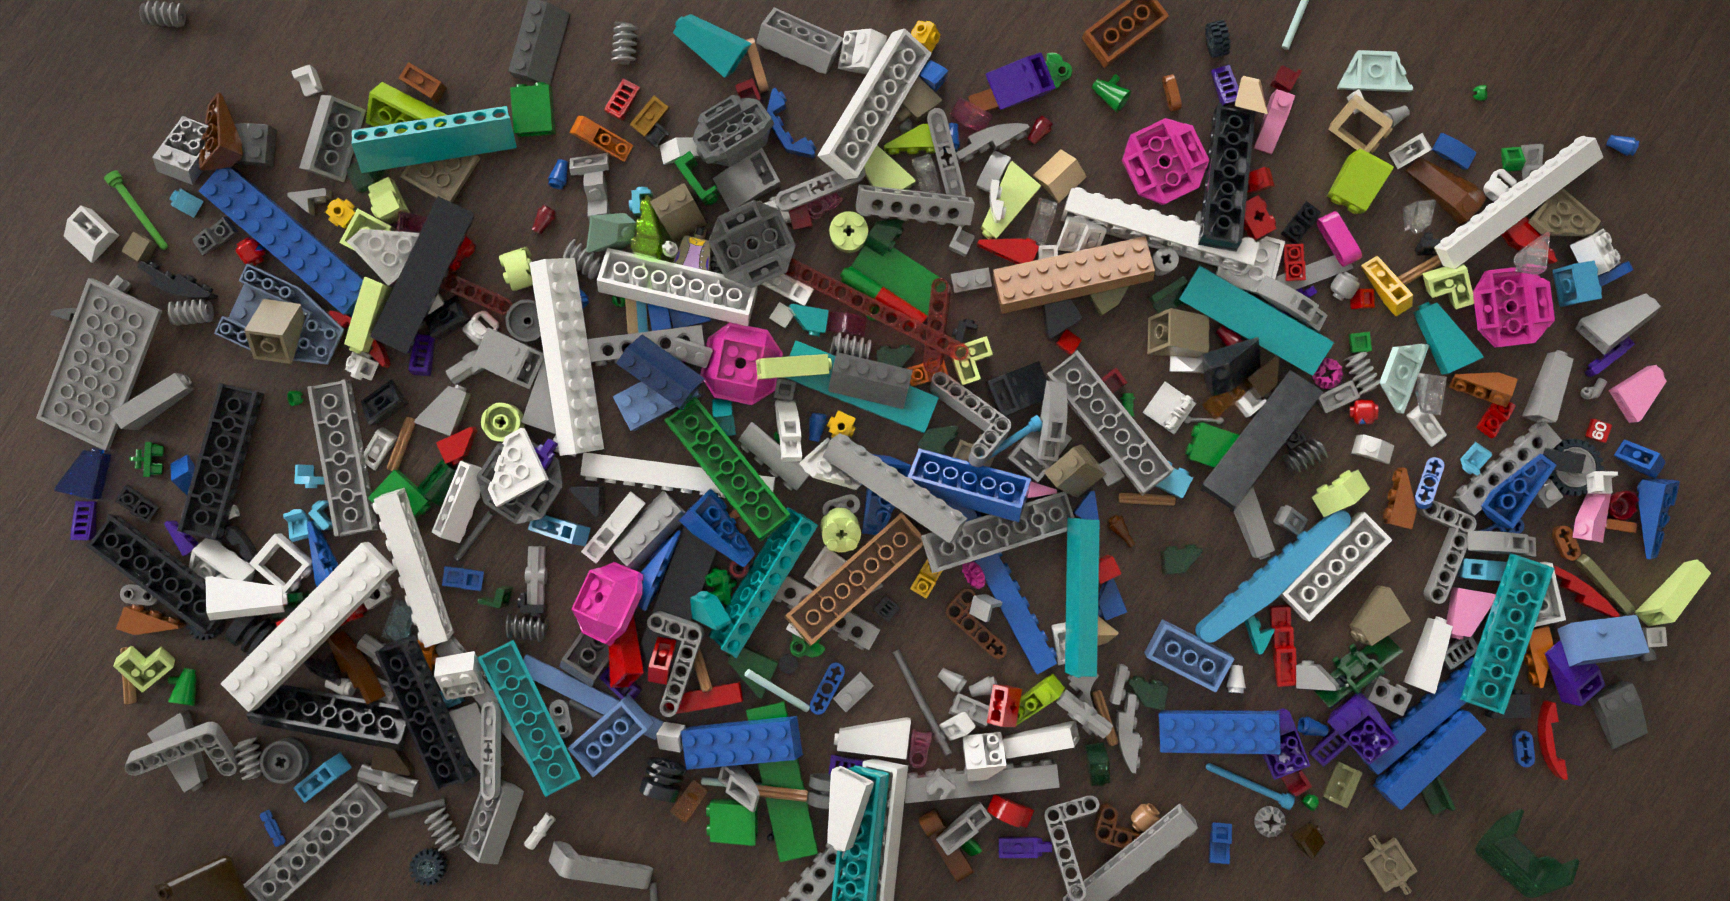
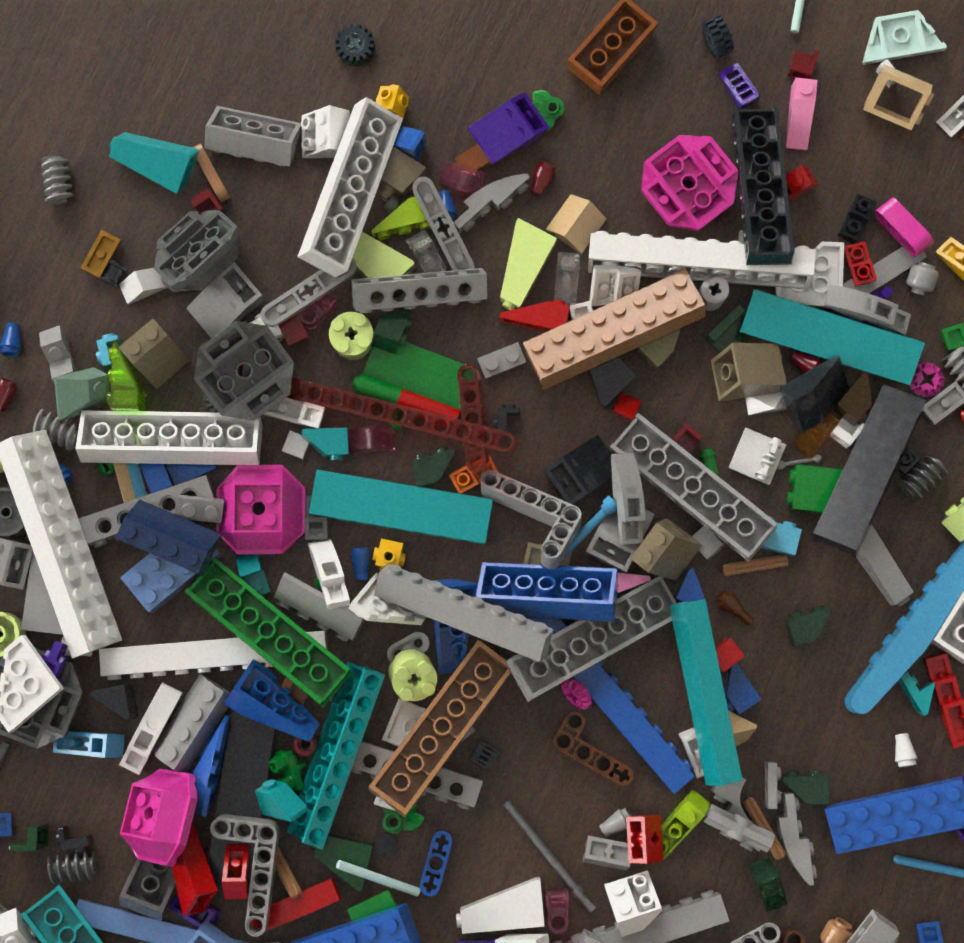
camera: 10 degrees left, 5 degrees down
(536, 575) = (72, 803): light grey piece -> none
(589, 163) = (43, 321): light grey plate -> none
(601, 138) = (51, 290): orange slope -> none
(628, 102) = (59, 239): red slope -> none
(670, 249) = (153, 397): white axle -> none
(687, 163) = (152, 298): green panel -> none
(695, 251) = (182, 393): torso -> none
(793, 366) = (319, 499): yellowish green slope -> none
(803, 146) = (277, 254): blue slope -> none
(850, 346) = (381, 464): light grey piece -> none
(853, 691) = (467, 860): light grey plate -> none
(870, 380) = (410, 496): dark grey slope -> none
(925, 580) = (523, 713): yellow slope -> none
(937, 438) = (500, 547): clear green slope -> none
(952, 680) = (578, 822): light grey cone -> none
(957, 726) = (595, 874): white slope -> none
(961, 242) = (481, 320): light grey panel -> none
(967, 371) = (519, 462): yellowish green brick -> none
(982, 606) = (594, 728): light grey panel -> none
(993, 170) = (500, 235): light grey slope -> none
(996, 206) = (511, 271): white slope -> none
(1041, 740) = (696, 870): white slope -> none
(1111, 93) = (613, 121): green piece -> none
(1172, 92) = (680, 106): dark orange beam -> none
(1189, 655) = (844, 734): medium blue brick -> none
(1251, 95) = (768, 89): tan slope -> none
(1262, 226) = (810, 234): red brick -> none
(1290, 520) = (923, 553): light grey slope -> none
(1359, 181) = (911, 159): lime slope -> none
(1363, 299) = (946, 288): red slope -> none
(1397, 114) = (936, 78): light grey cone -> none

